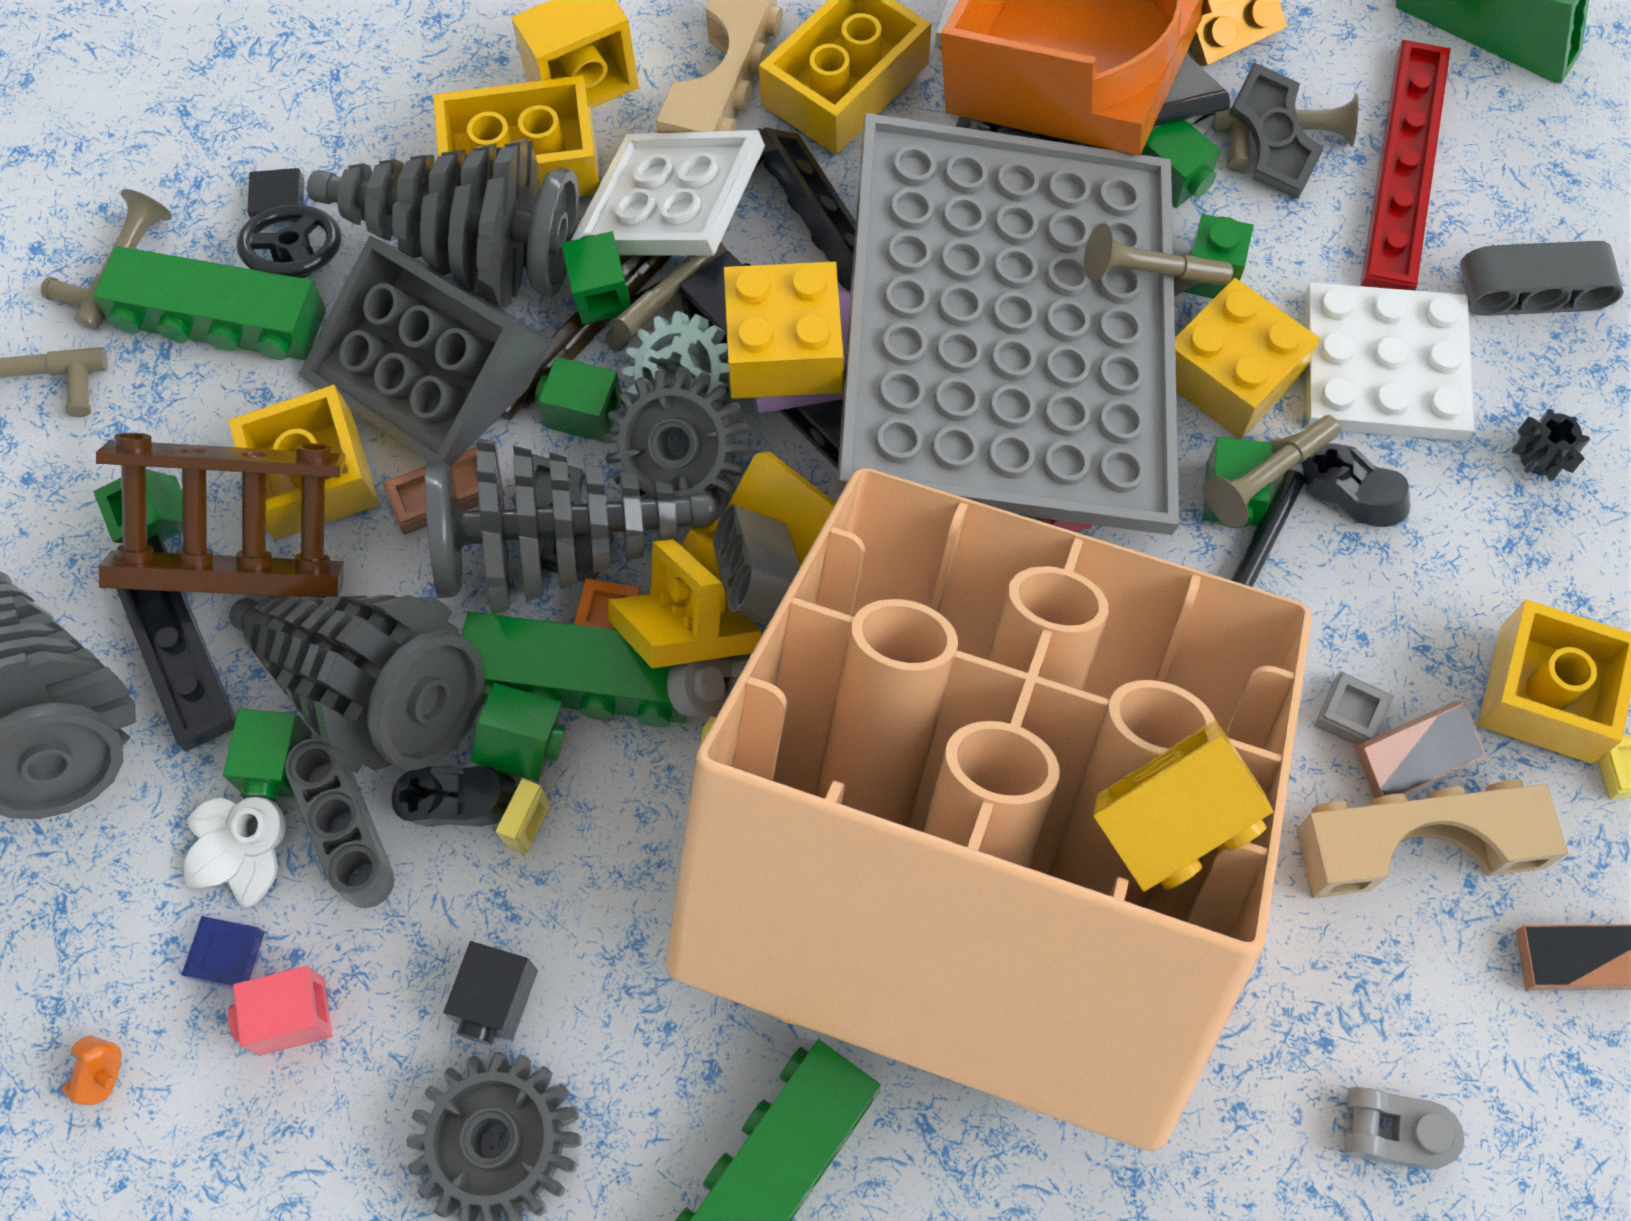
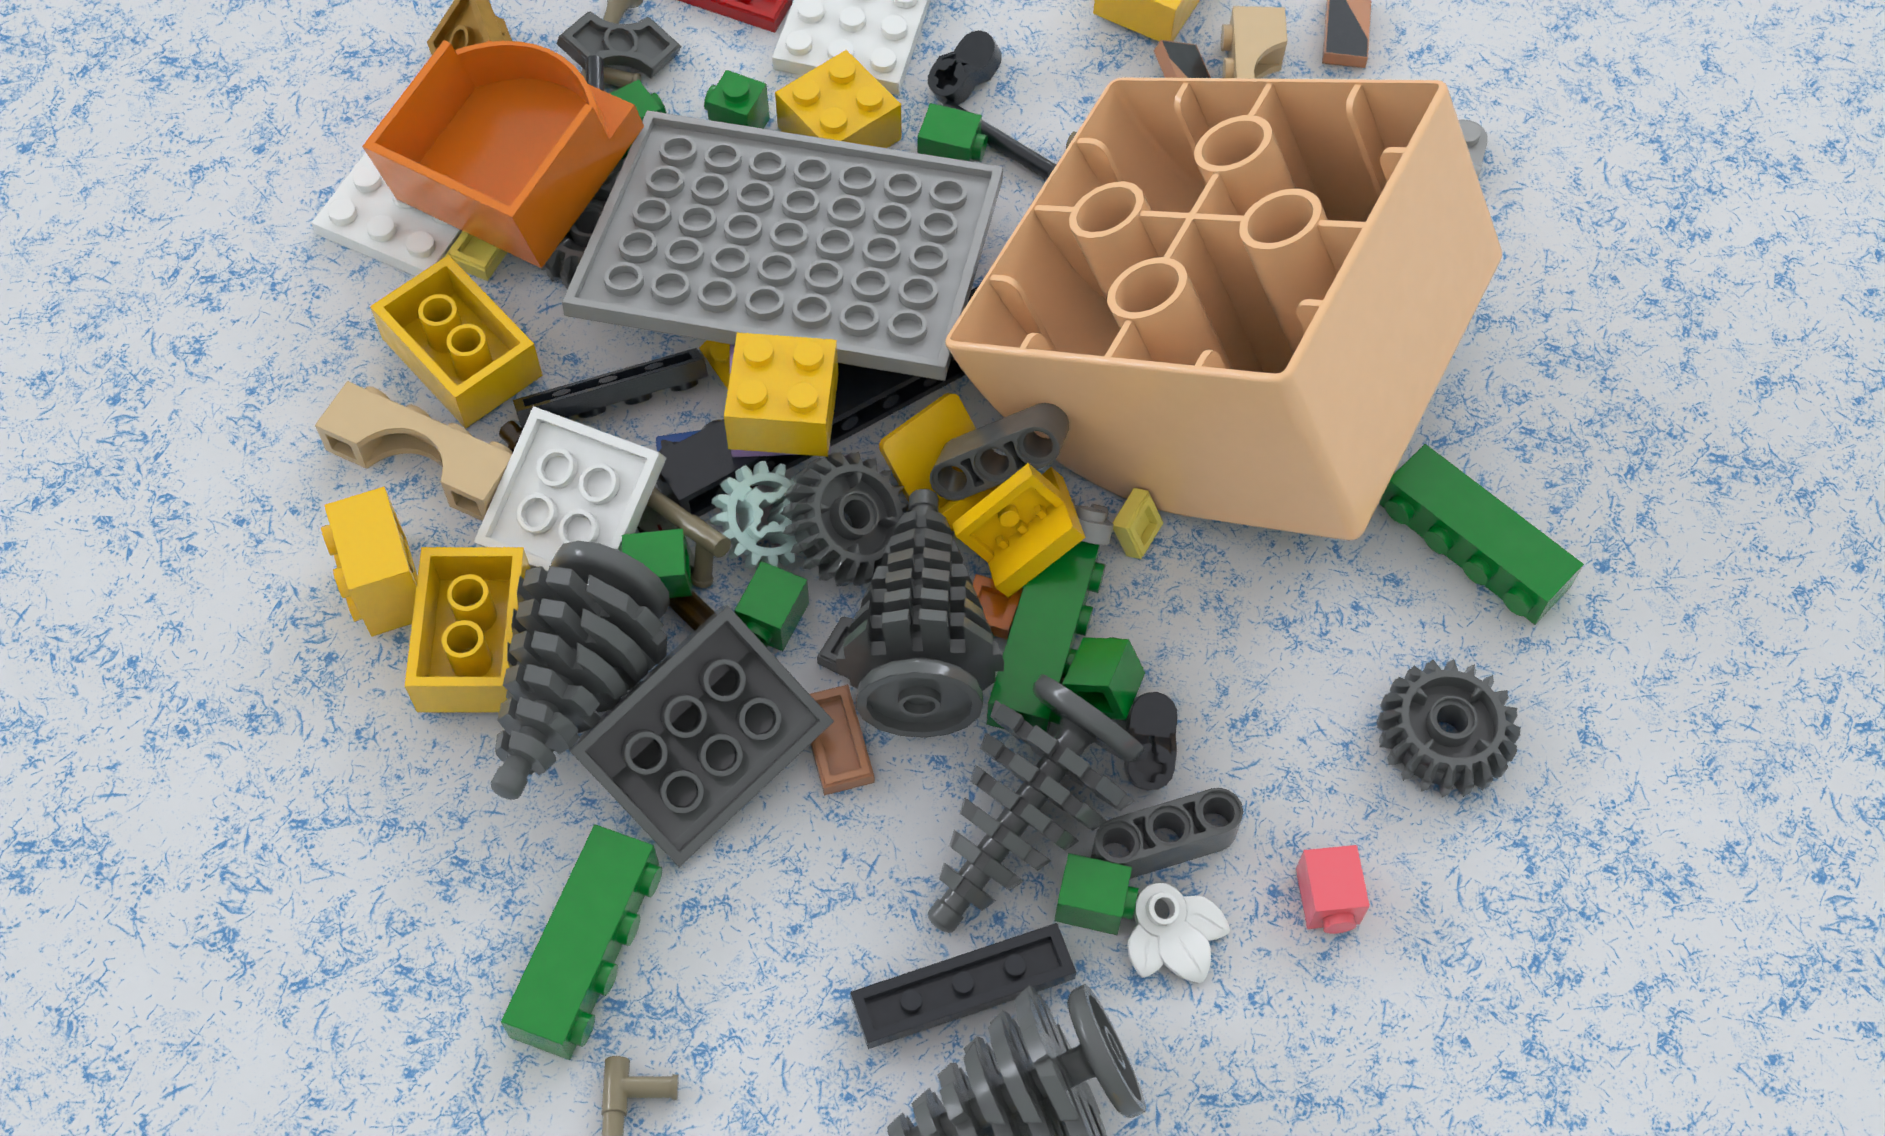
camera: 85 degrees left, 5 degrees down
(94, 1071) = (1368, 1058): orange piece -> none
(141, 214) = (541, 1068): dark tan piece -> none
(163, 506) = (825, 994): green brick -> none
(194, 565) = (913, 888): reddish brown fence -> none
(222, 952) = (1271, 946): clear blue tile -> none
(274, 189) = (451, 882): black tile -> none
(289, 246) = (539, 864): black piece -> none
(317, 419) = (801, 843): yellow brick -> none
(490, 993) = (1328, 722): black brick -> none
(523, 817) = (1178, 683): light yellow tile -> none
(1106, 253) = (752, 157): dark tan piece -> none
(1182, 808) = (1323, 119): yellow brick -> none
(1230, 498) = (982, 133): dark tan piece -> none

